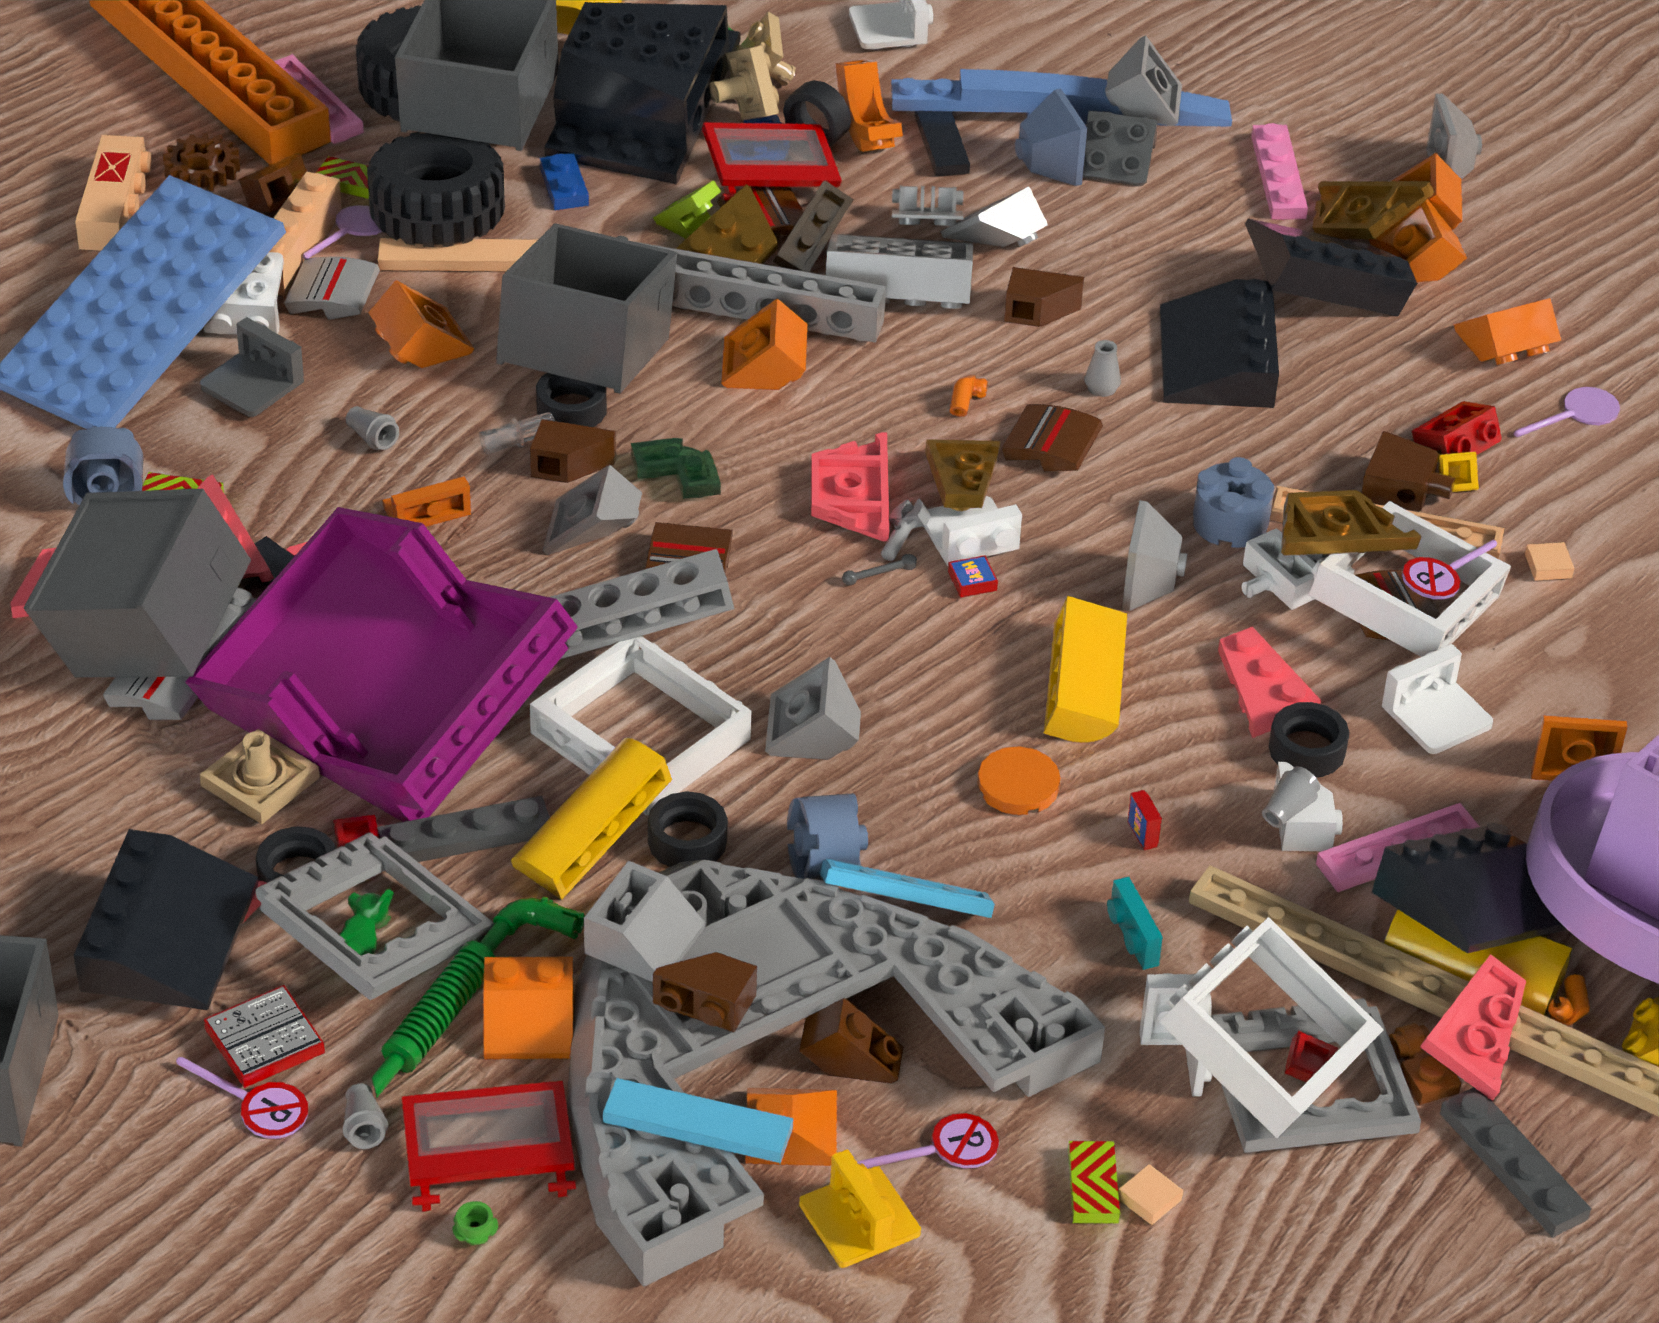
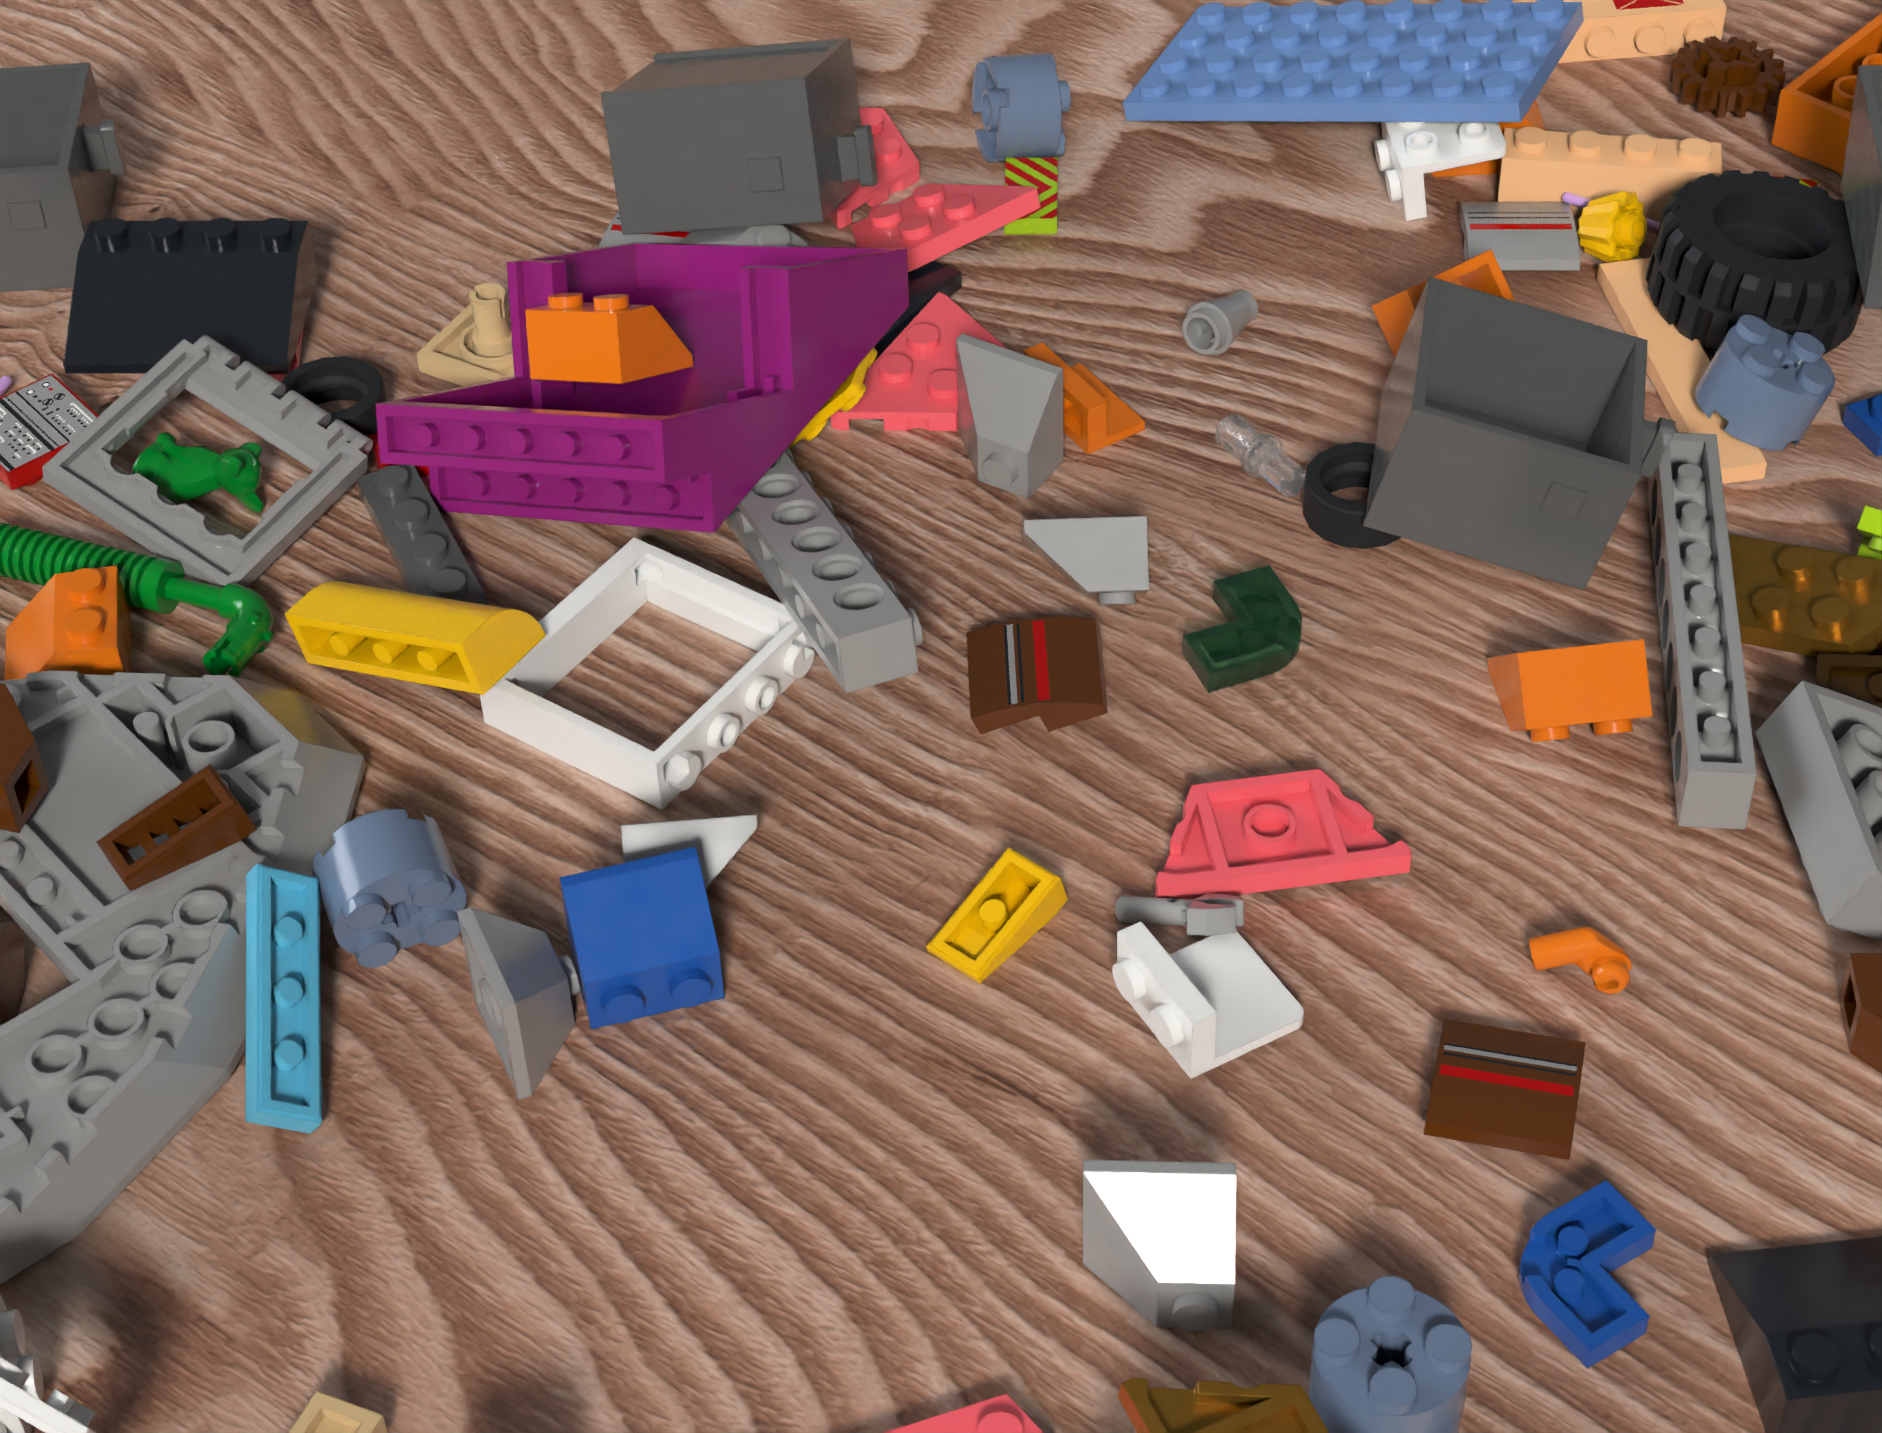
camera: 85 degrees right, 0 degrees up
(260, 372) = (1288, 205): dark grey bracket -> none
(271, 186) = (1742, 145): reddish brown slope -> none
(351, 241) = (1613, 227): none -> yellow piece
(357, 679) = (601, 340): none -> orange slope
(465, 520) = (1009, 415): none -> light grey slope
(540, 206) = (1766, 384): none -> sand blue brick
(570, 451) = (1231, 506): reddish brown slope -> none
(641, 922) = (114, 668): light grey slope -> none
(692, 808) = (436, 786): black tyre -> none
(784, 879) = (215, 825): none -> reddish brown slope
(883, 602) = (999, 916): none -> yellow slope
(896, 734) = (642, 938): none -> blue slope
(907, 562) = (1056, 866): dark grey hinge -> none
(931, 792) = (519, 993): none -> light grey slope
(962, 470) = (1344, 963): pearl gold wing -> none
(972, 576) = (1097, 1023): tile -> none
(1018, 780) = (597, 1138): orange tile -> none
(1085, 672) = (864, 1183): yellow brick -> none
(1103, 371) = (1718, 1136): light grey cone -> none
(1136, 923) = (244, 1322): teal plate -> none
(1144, 819) = (497, 1311): red tile -> none
(1173, 442) = (1569, 1268): none -> blue plate

